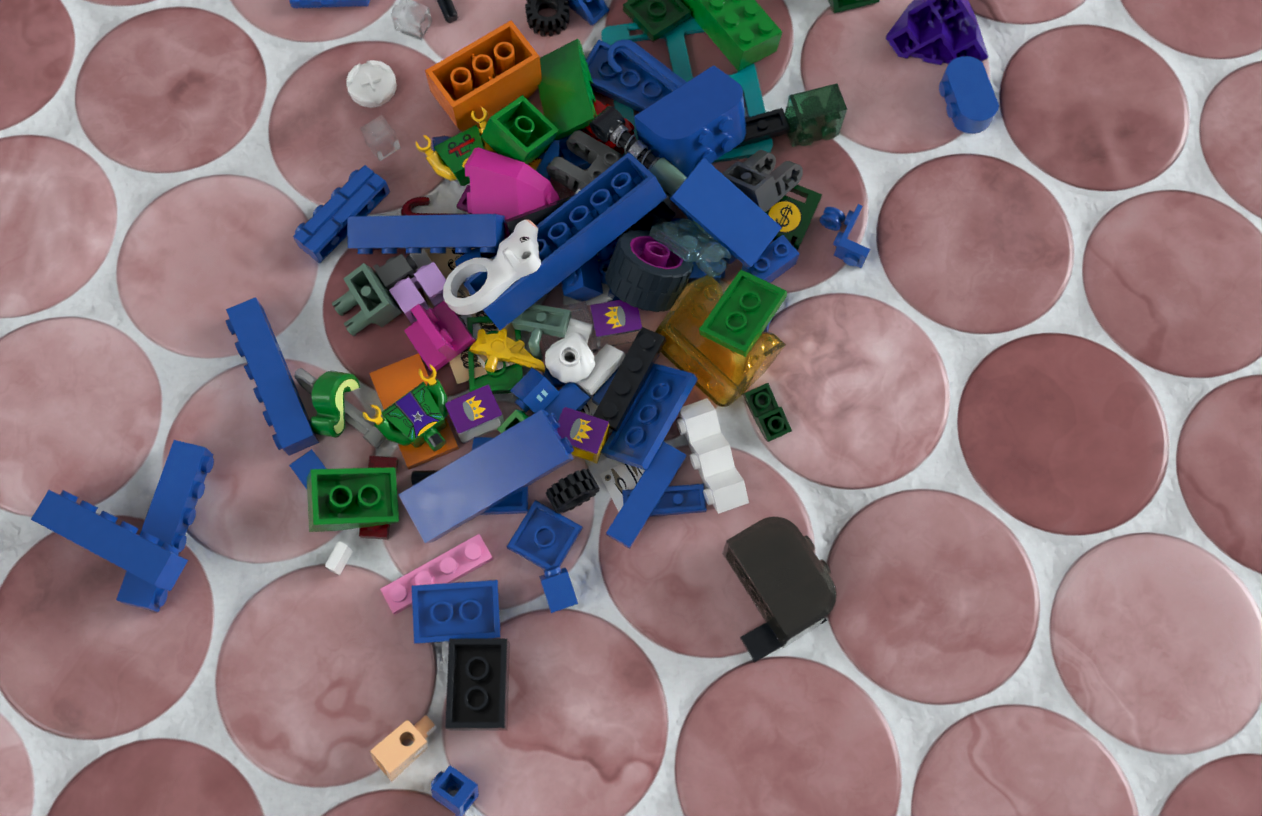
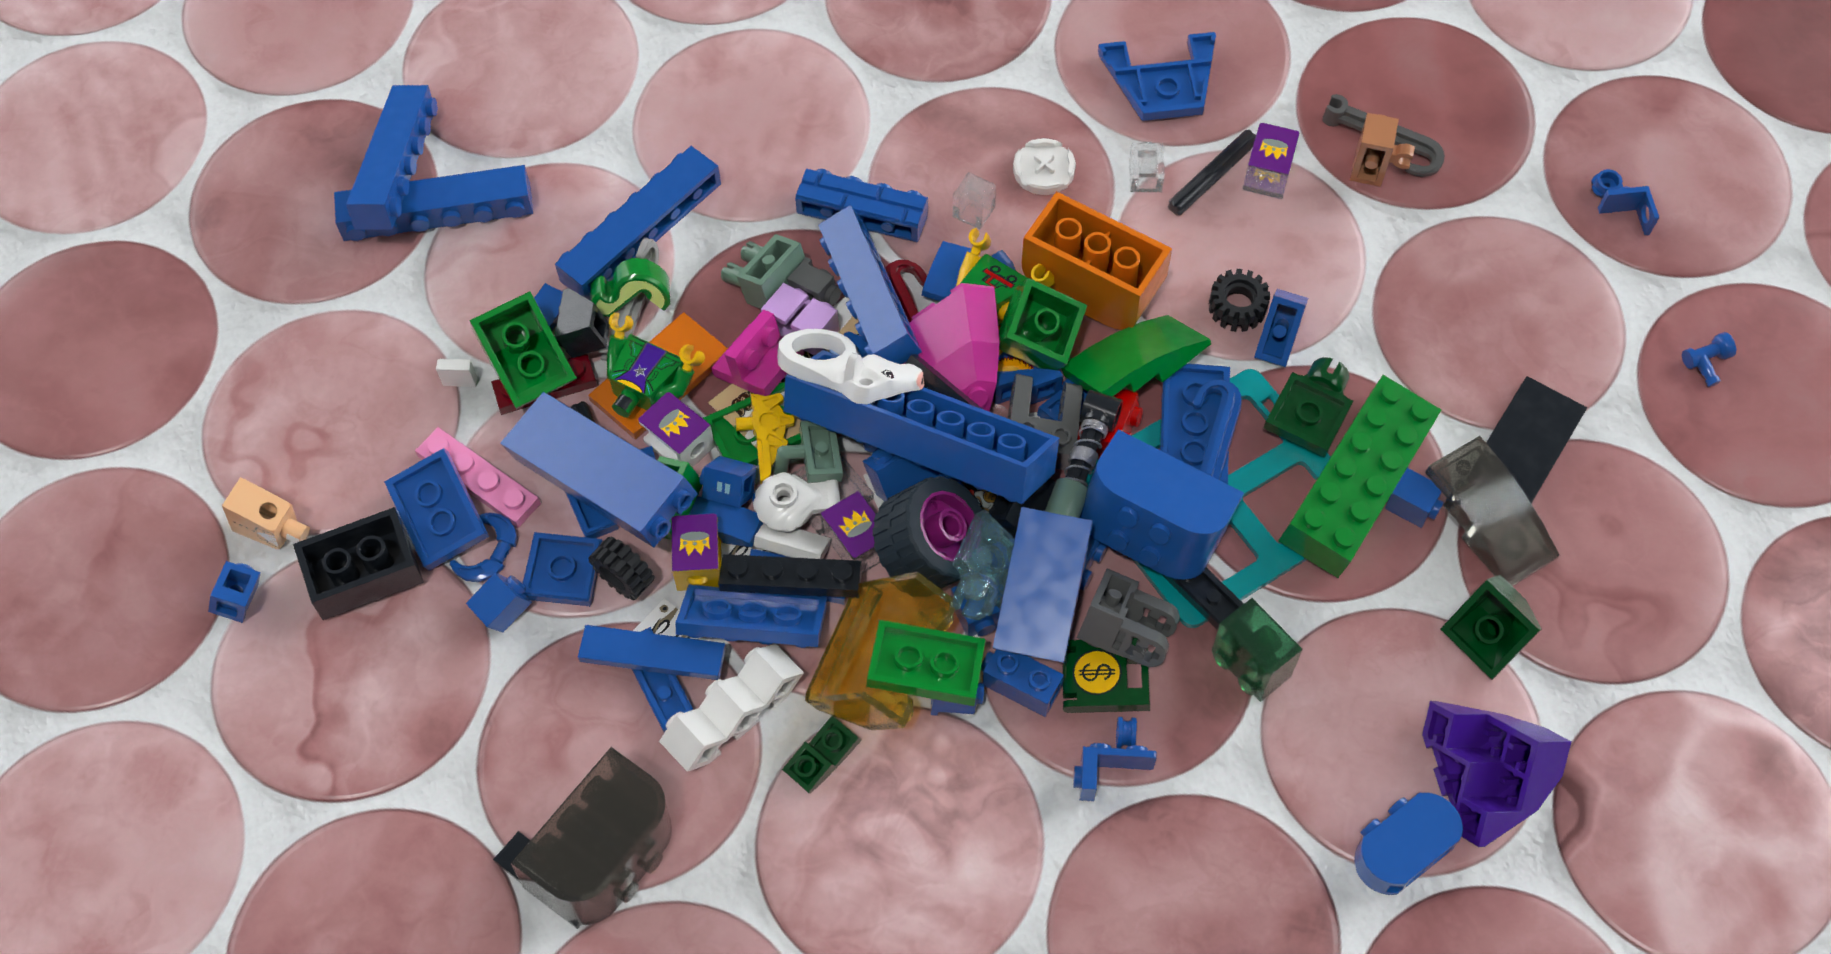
camera: 70 degrees right, 10 degrees down
(346, 446) = (580, 325): none -> black slope
(429, 182) = (944, 271): none -> blue slope
(519, 590) = (506, 539): none -> blue piece

